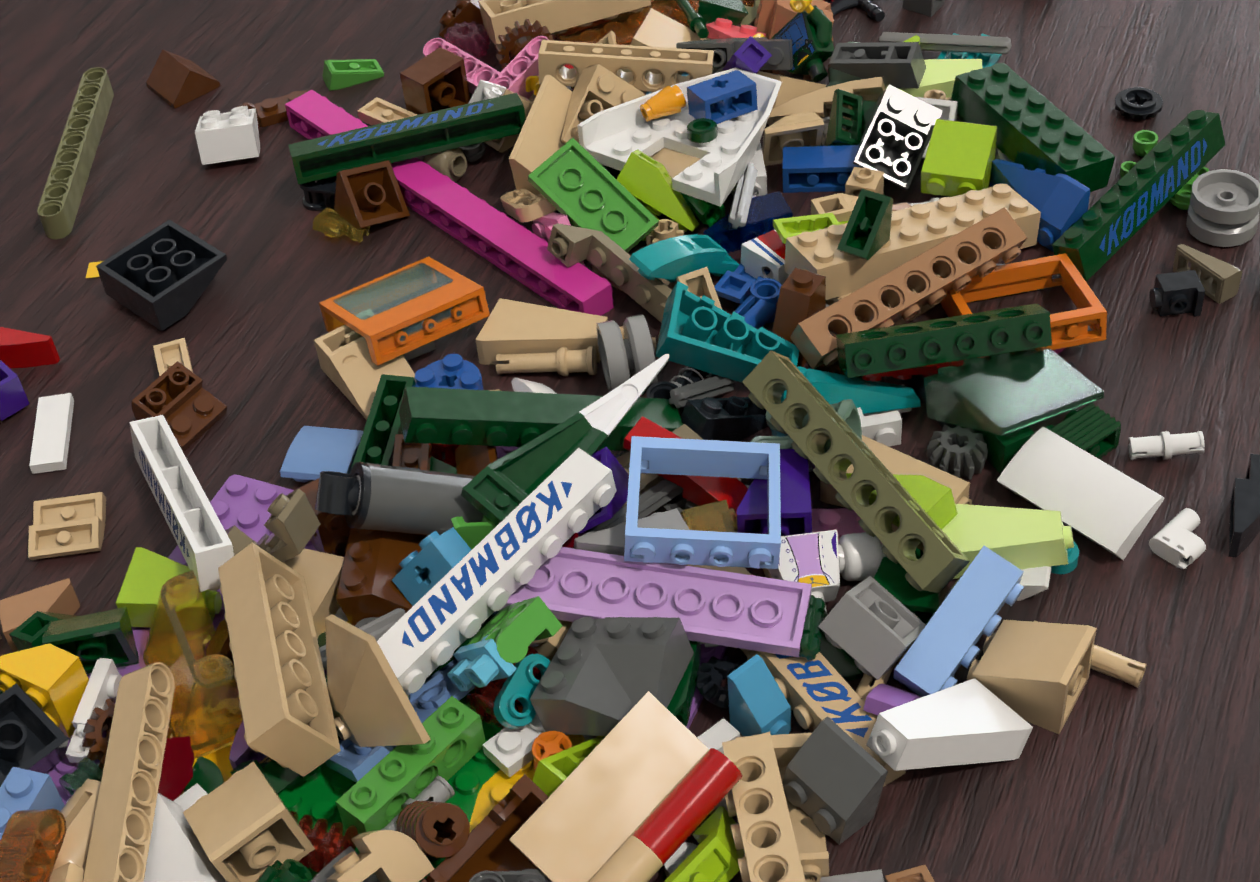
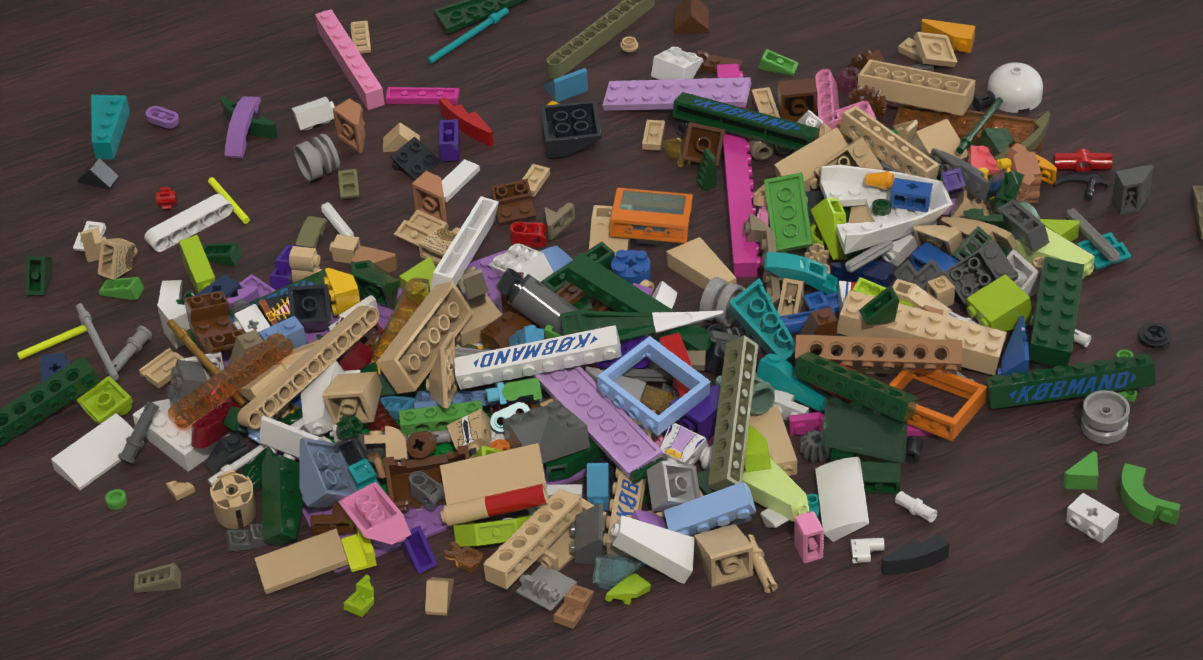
camera: 40 degrees right, 0 degrees up
(46, 466) = (429, 195): none -> nougat slope
(98, 231) = (568, 85): none -> dark azure slope
(128, 524) = (437, 244): none -> tan torso
(131, 146) = (629, 44): none -> tan plate
(243, 437) = (527, 234): none -> red piece
(258, 164) = (662, 93): none -> lavender plate
(265, 397) = (559, 220): none -> dark tan slope
(285, 224) = (653, 135): none -> tan plate
(285, 469) = (522, 260): none -> white slope
(316, 786) = (398, 402): none -> dark azure slope
(408, 236) = (707, 173): none -> dark green slope
(485, 758) = (471, 431): none -> tan torso
(563, 361) = (696, 286): tan pin -> none
(816, 82) = (978, 214): none -> dark green slope
(830, 180) = (909, 273): none -> dark grey plate
(912, 431) = (803, 422): none -> dark pink plate
(923, 806) = (613, 569): none -> clear light blue slope
(969, 822) = (629, 588): none -> lime slope
(1113, 569) = (809, 537): none -> bright pink brick
(1177, 293) = (1022, 443): black brick -> none
(1217, 277) = (1053, 449): dark tan slope -> none

